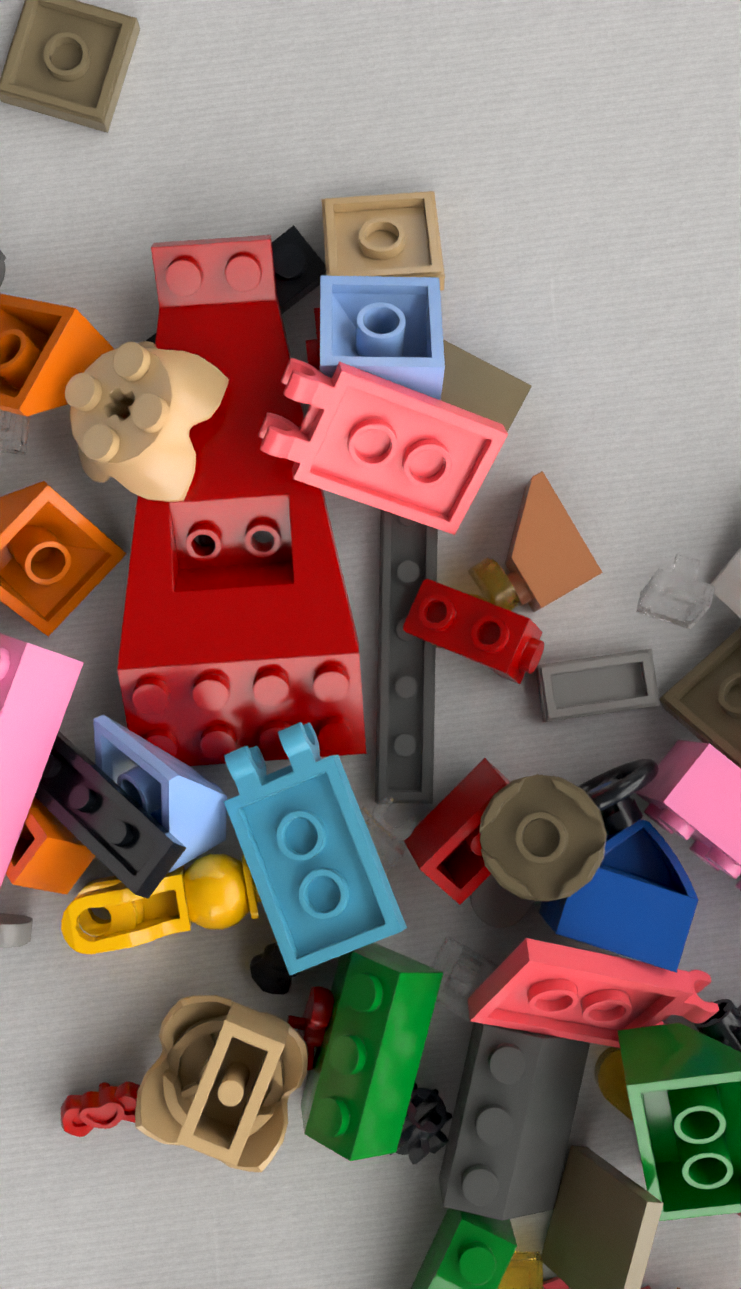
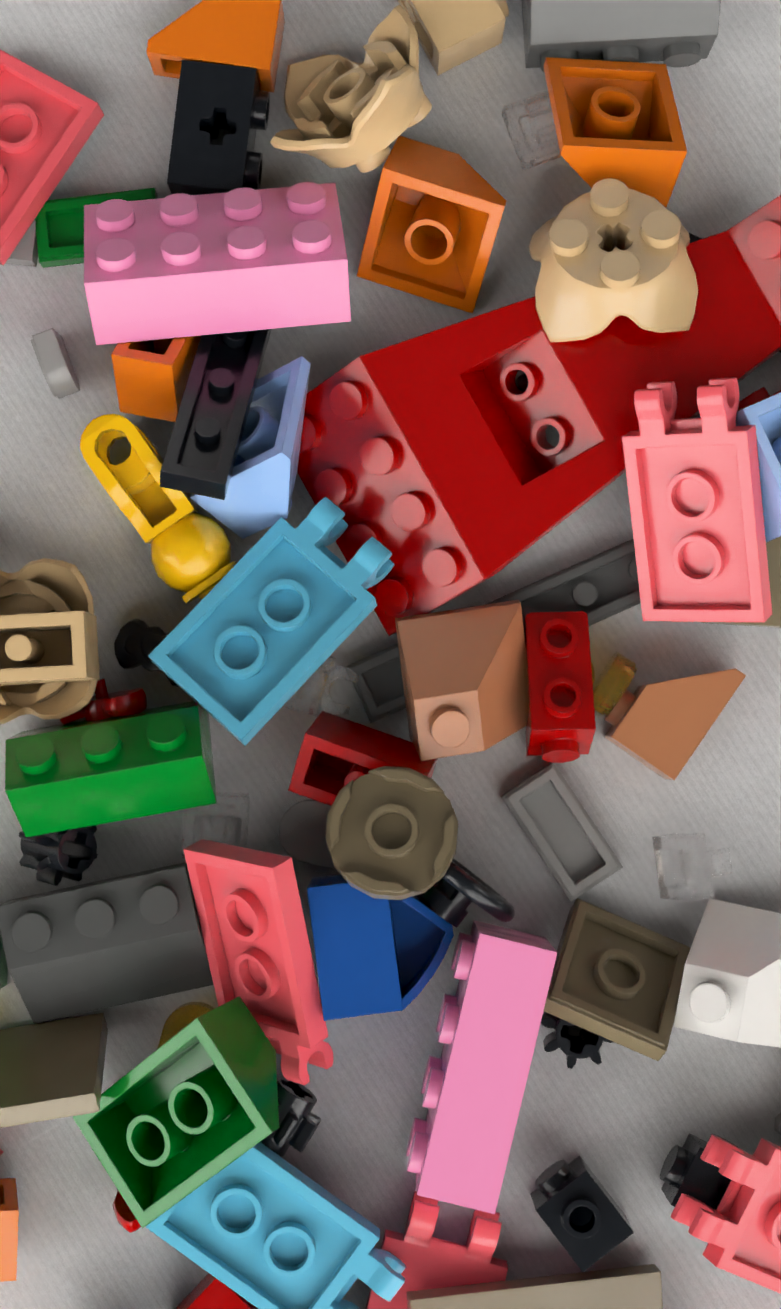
camera: 65 degrees right, 0 degrees up
(433, 708) = (463, 677): none -> nougat slope

